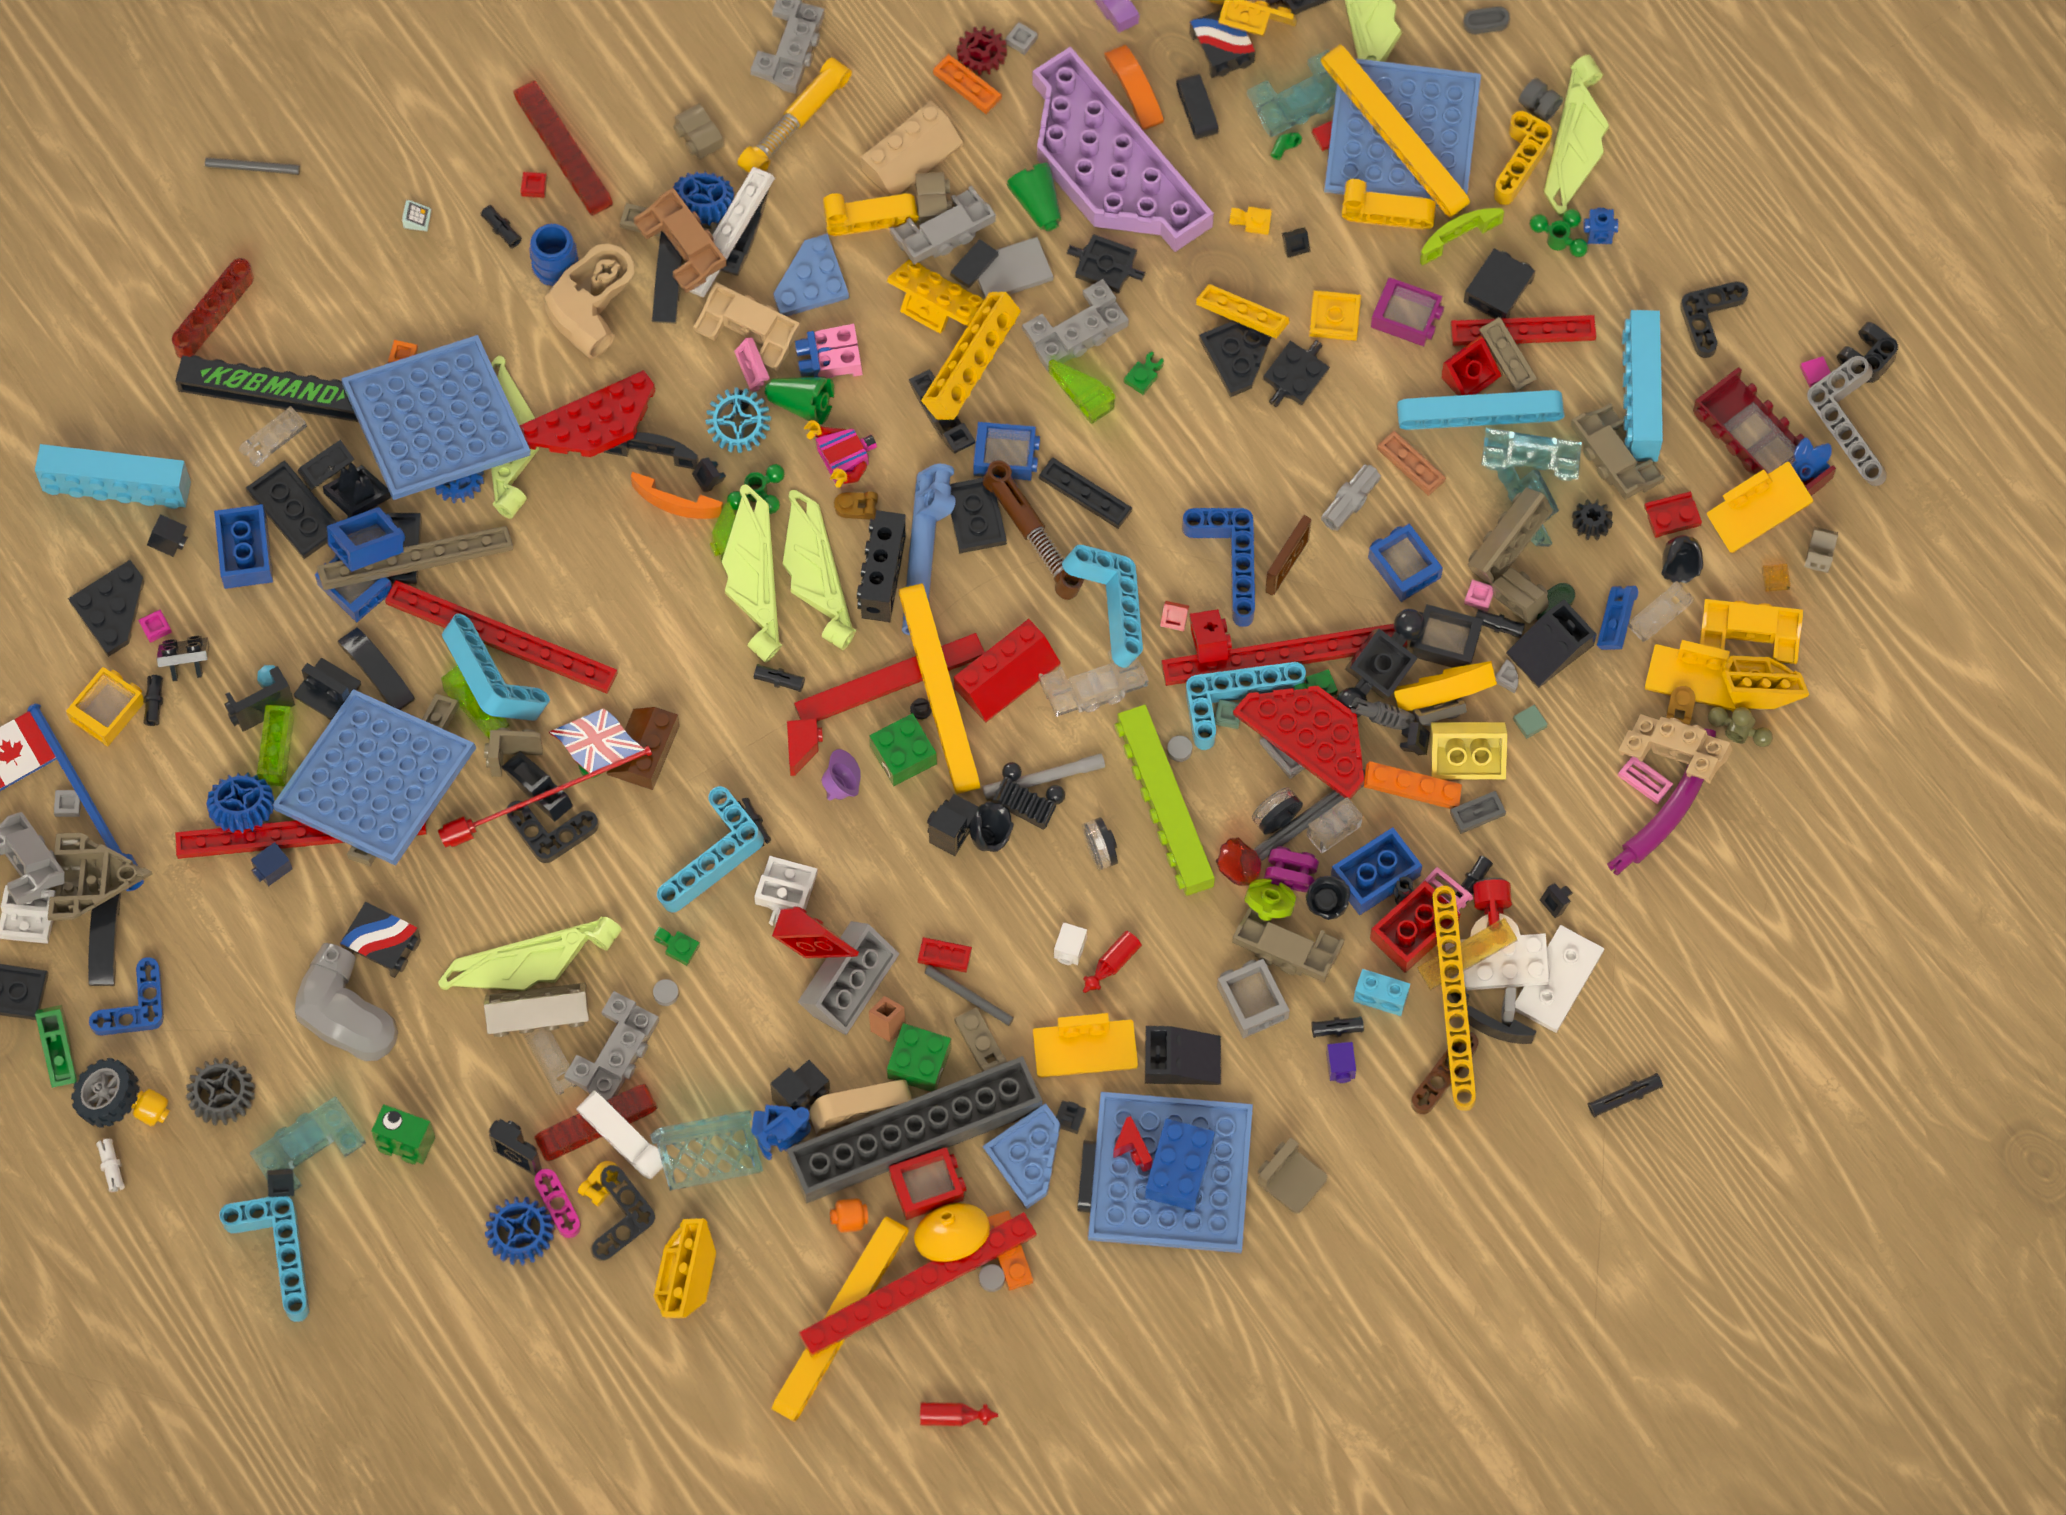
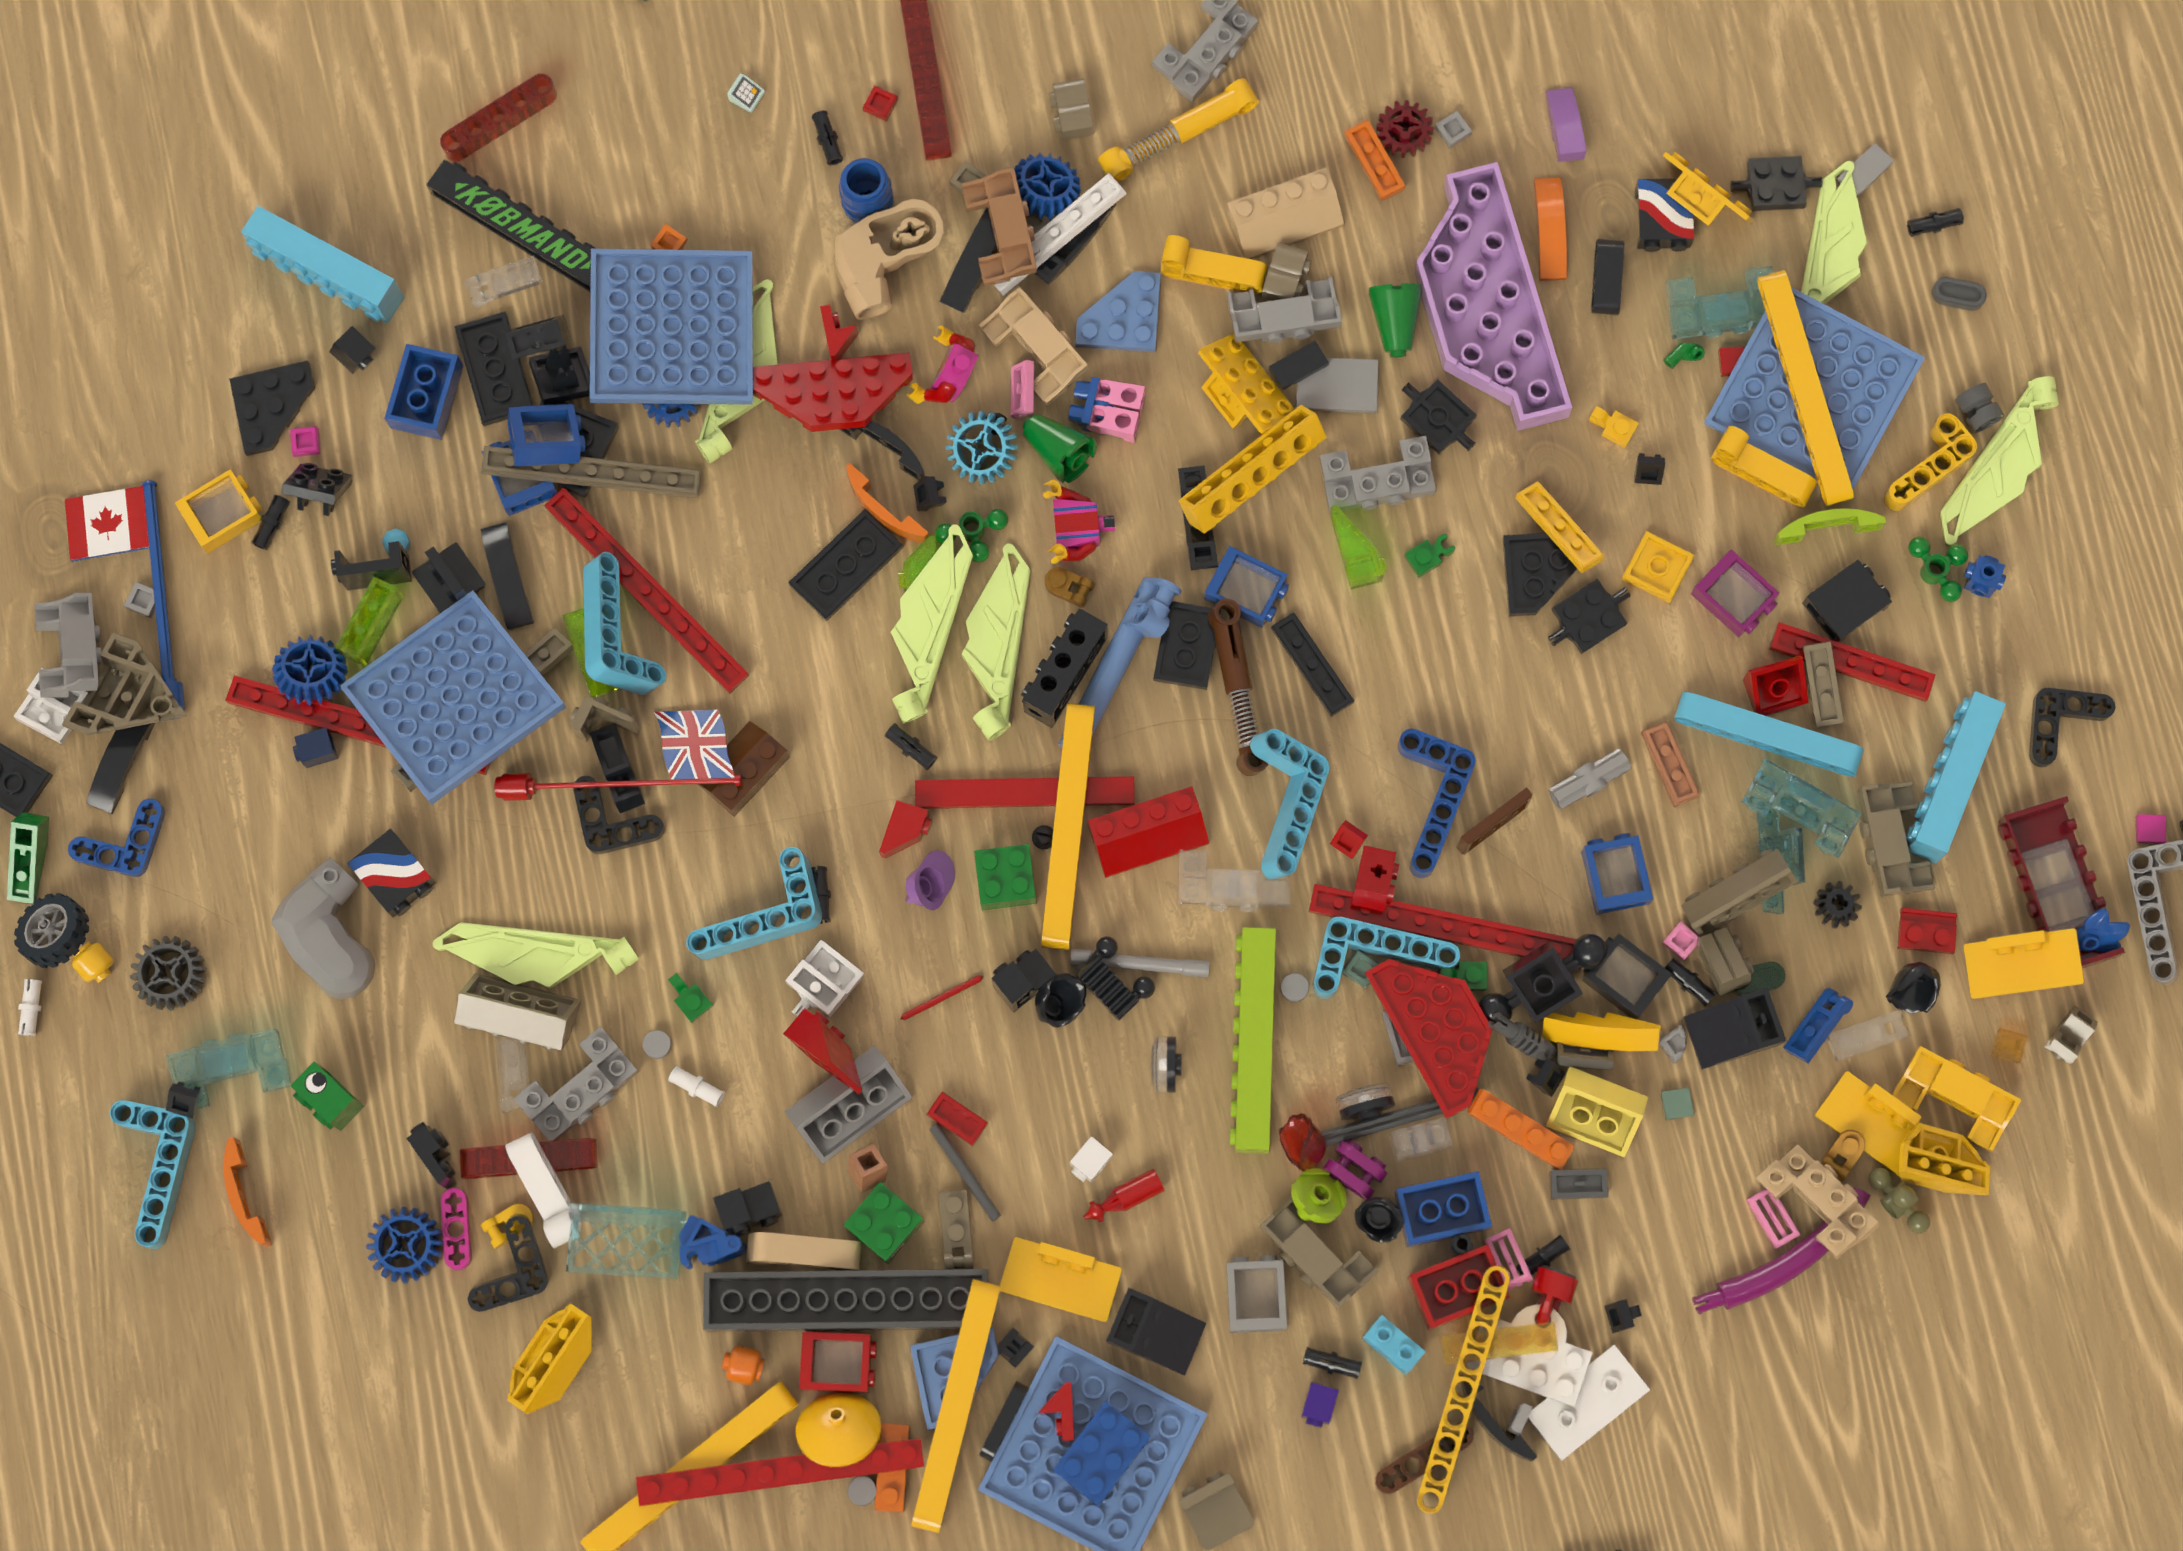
camera: 25 degrees right, 10 degrees up
(382, 1264) = (233, 1161): none -> orange slope
(577, 380) = (837, 338): none -> red slope
(661, 556) = (846, 565): none -> black tile
(688, 370) = (952, 372): none -> torso
(714, 1012) = (696, 1086): none -> white pin
(891, 864) = (941, 997): none -> red axle
(1043, 1174) = (955, 1406): none -> yellow beam

